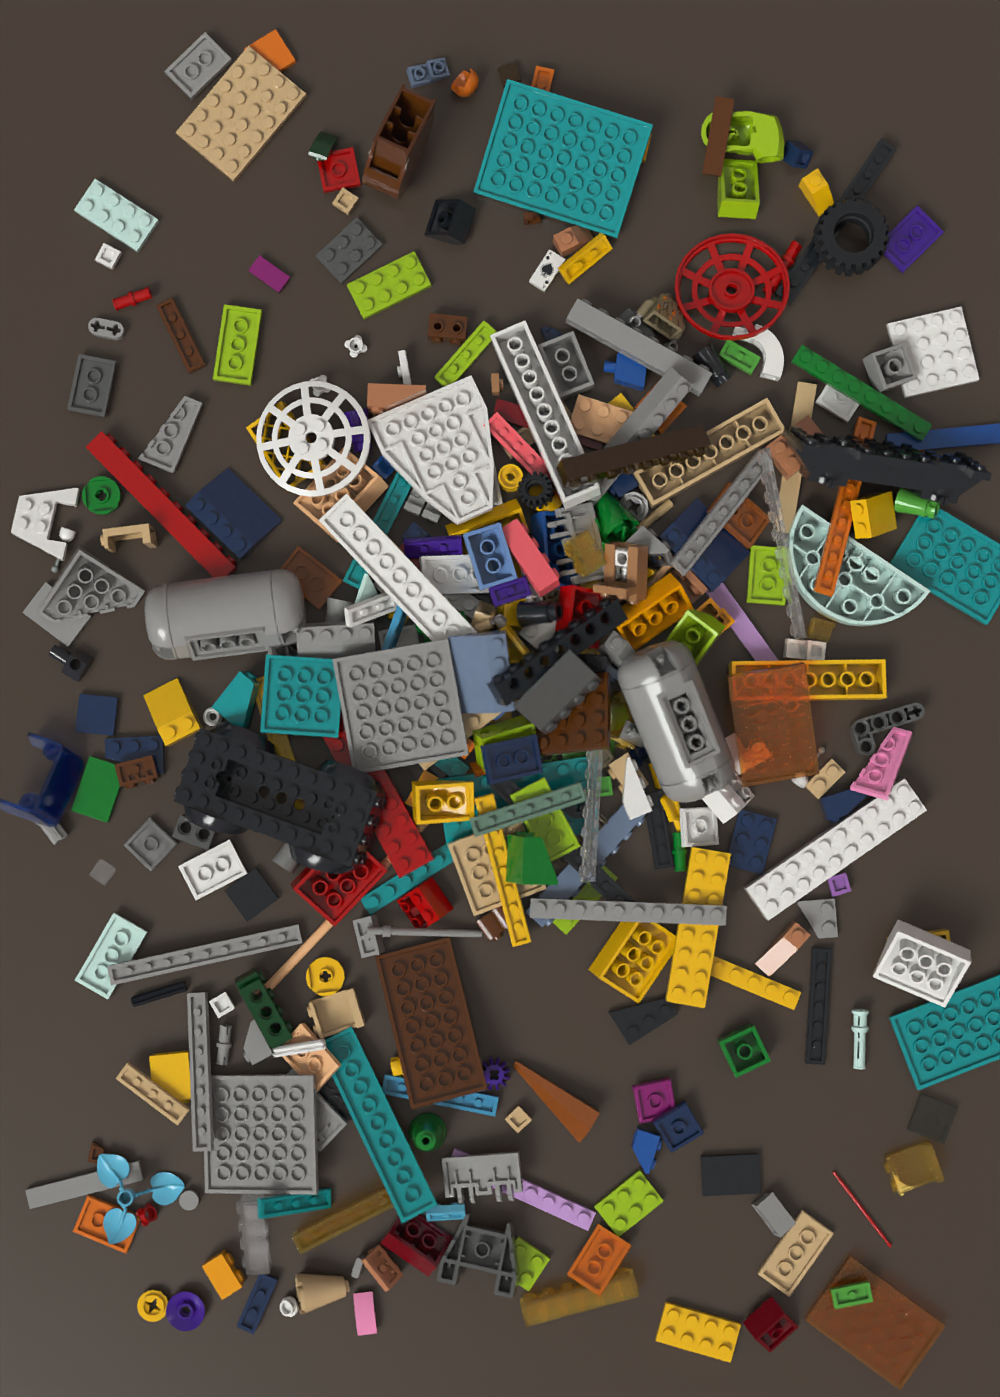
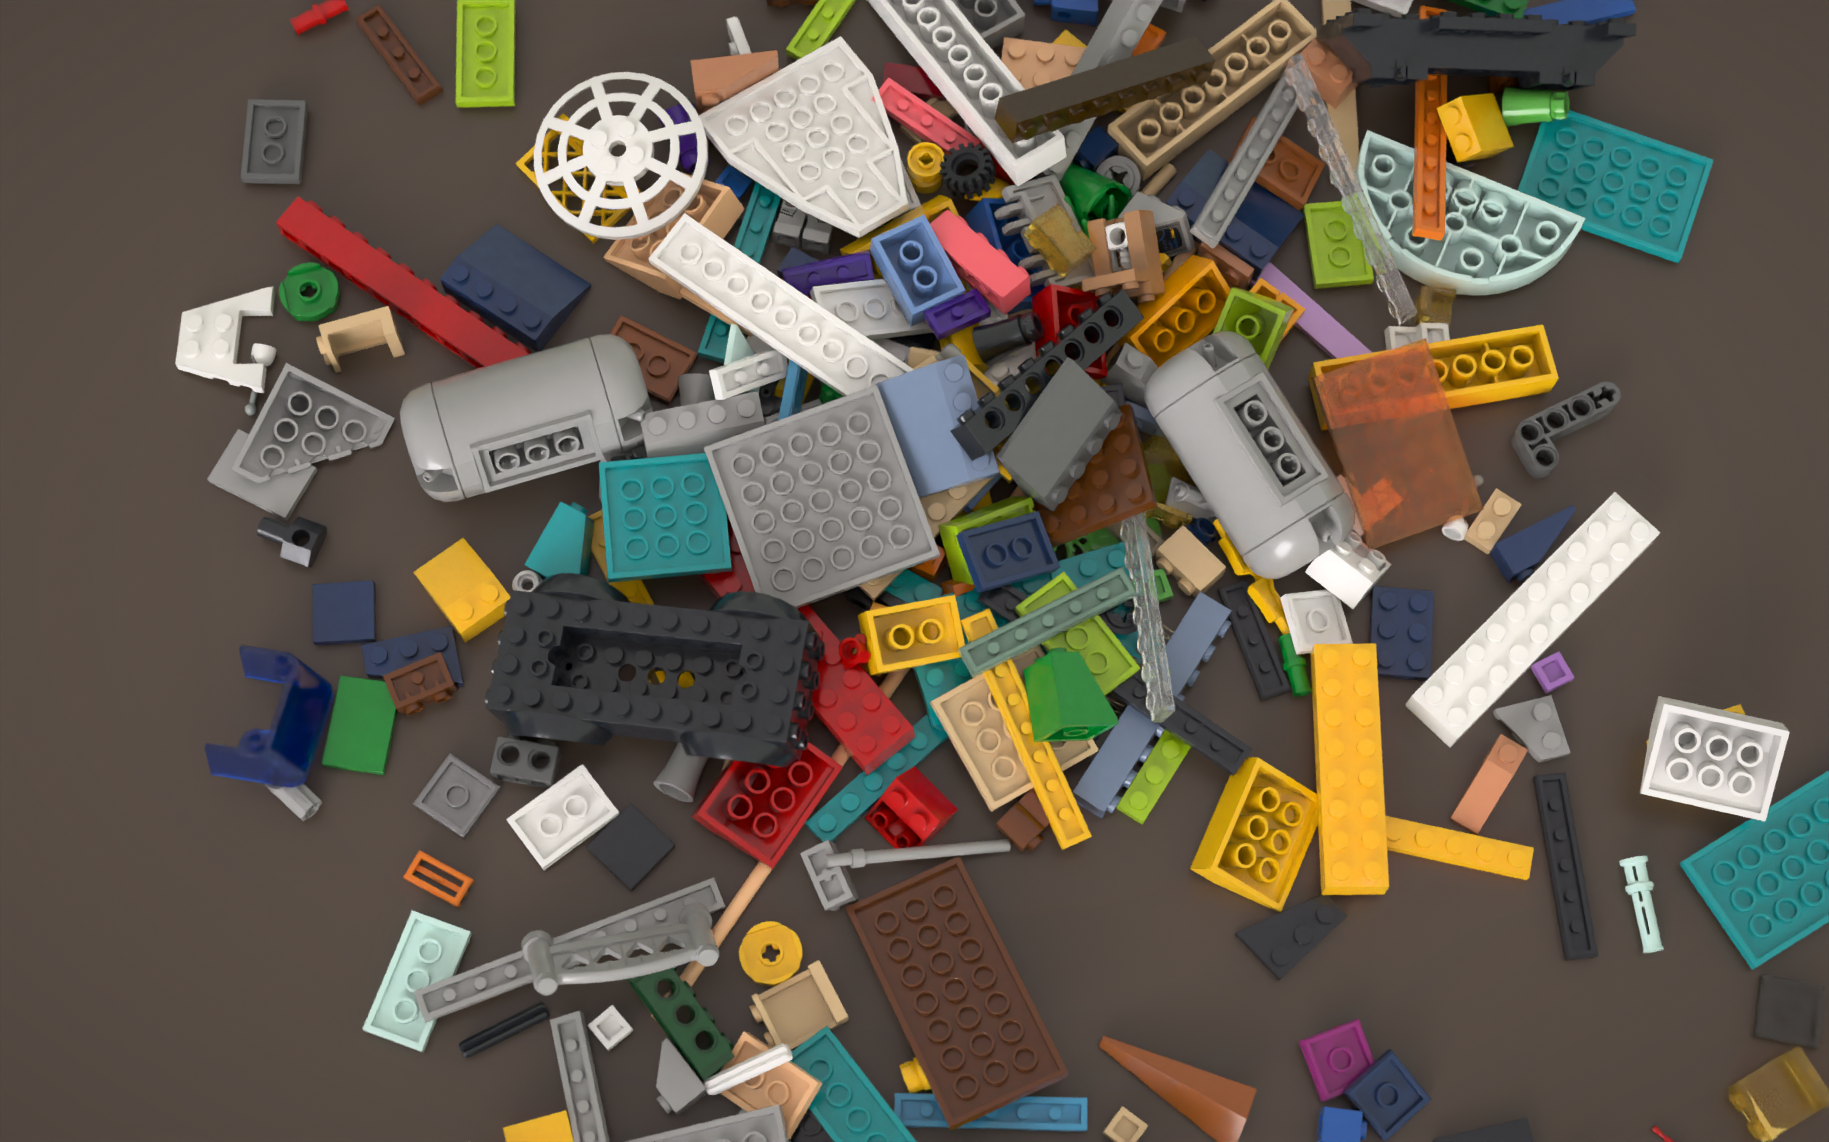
camera: 10 degrees left, 15 degrees down
(102, 872) = (385, 852): clear tile -> none
(107, 324) = (286, 62): light grey beam -> none
(145, 903) = (461, 891): none -> orange tile
(171, 440) = (406, 194): light grey wing -> none
(190, 965) = (549, 960): none -> light grey piece
(224, 1044) = (623, 1092): light grey pin -> none
(319, 390) = (610, 87): white plate -> none
(357, 340) = (658, 21): white plate -> none
(400, 805) = (846, 651): none -> red plate
(497, 384) = (880, 45): medium nougat plate -> none
(501, 1073) = (1083, 1060): dark purple gear -> none
(628, 911) = (1235, 757): light grey plate -> none
(634, 797) = (1207, 583): white slope -> none
(743, 1050) = (1464, 950): green brick -> none
(882, 770) = (1579, 482): bright pink wing -> none

